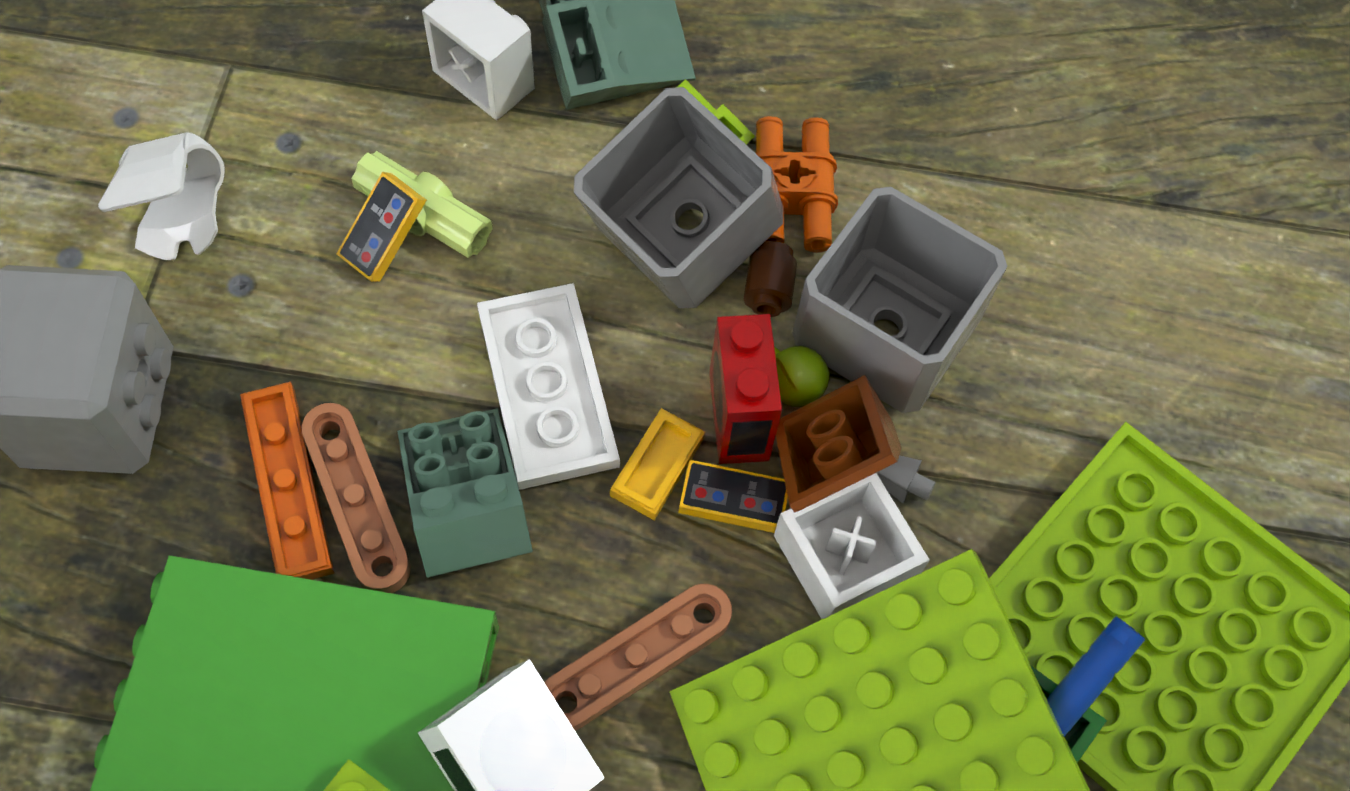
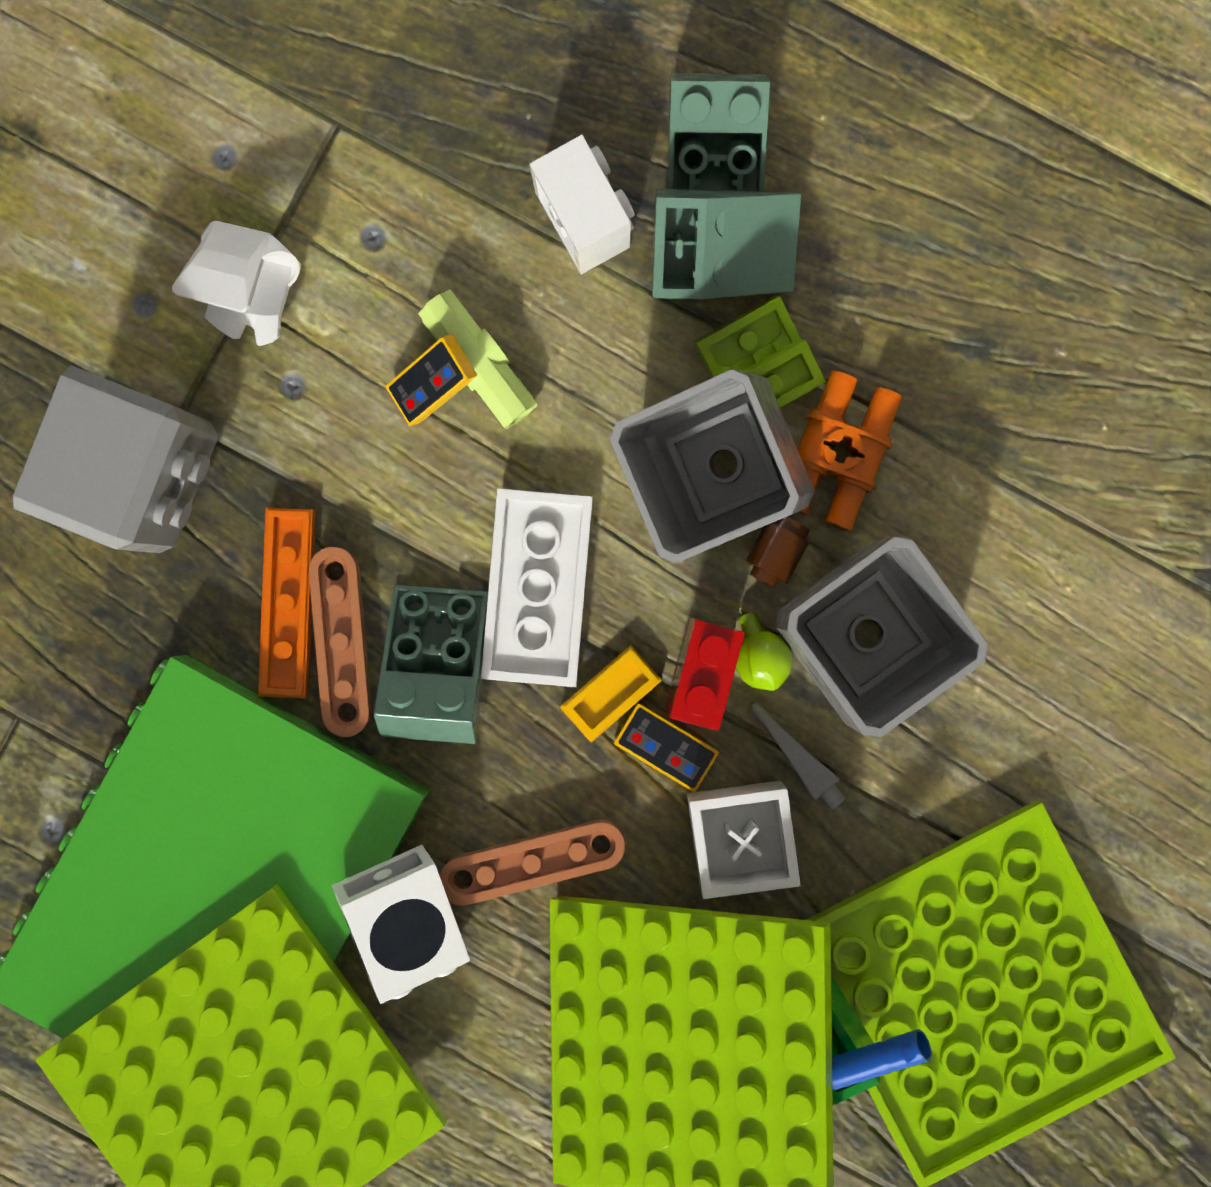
camera: 25 degrees right, 25 degrees up
(835, 443) = (760, 769): dark orange slope -> none

